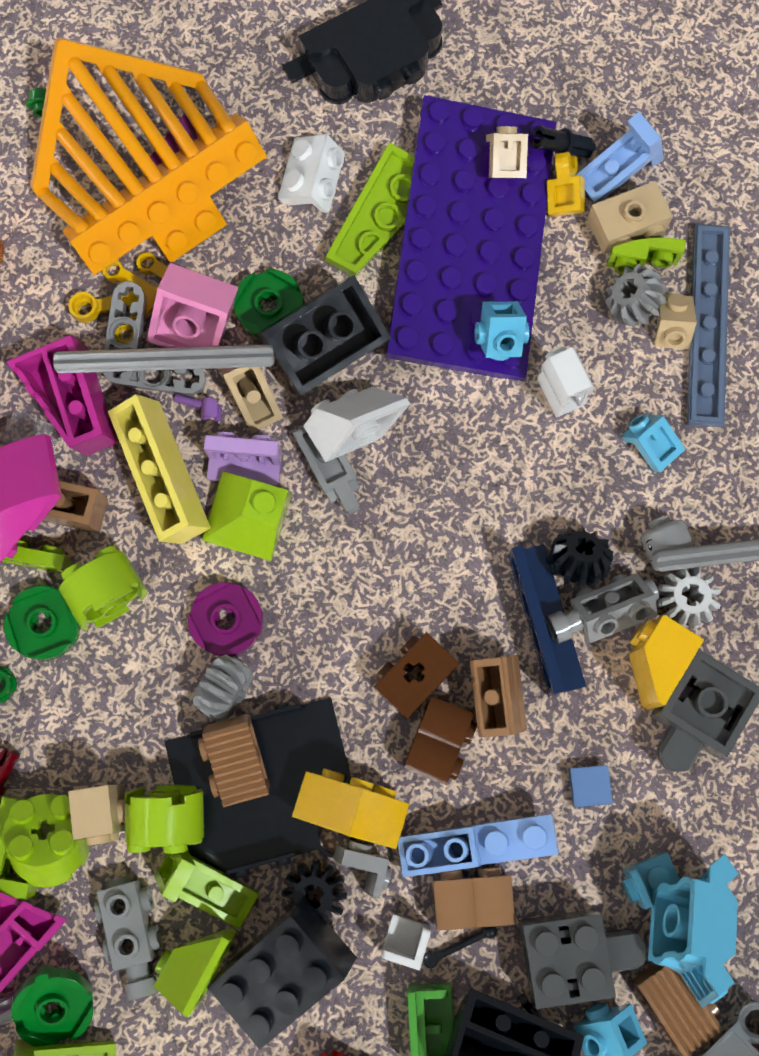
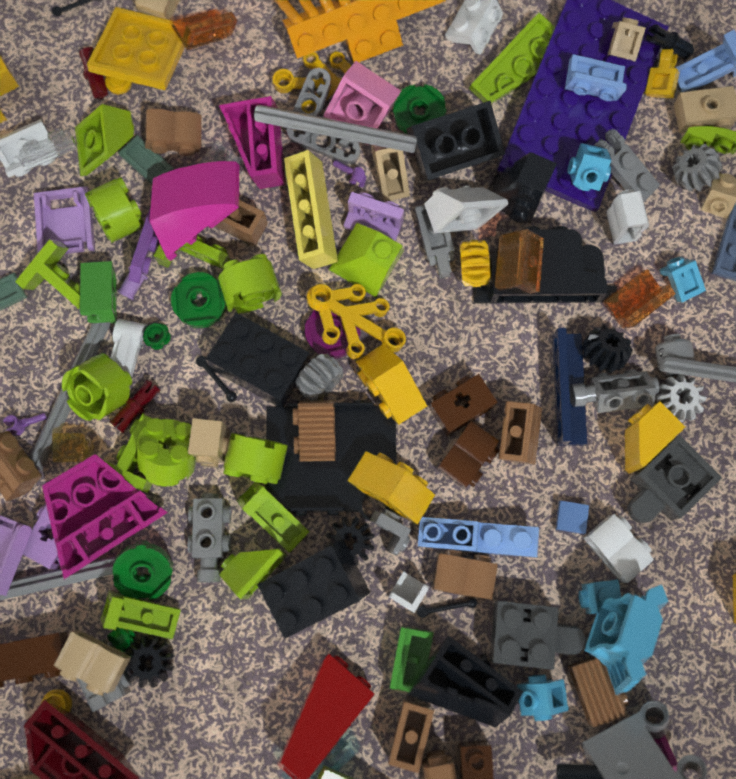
camera: 15 degrees right, 0 degrees up
(65, 702) = (230, 395): none -> black hinge
(137, 684) = (258, 360): none -> black brick
(245, 596) = (351, 317): none -> yellow plant
(313, 669) = (390, 380): none -> yellow brick
(386, 488) = (475, 263): none -> yellow gear
(423, 374) = (523, 186): none -> black wedge
(443, 474) = (519, 261): none -> clear orange panel
(479, 472) = (567, 273): none -> black brick
(481, 212) = (595, 78): none -> light blue bracket
(549, 315) = (627, 166): none -> light grey hinge
(604, 482) = (637, 299): none -> clear orange panel
(659, 812) = (619, 548): none -> white brick

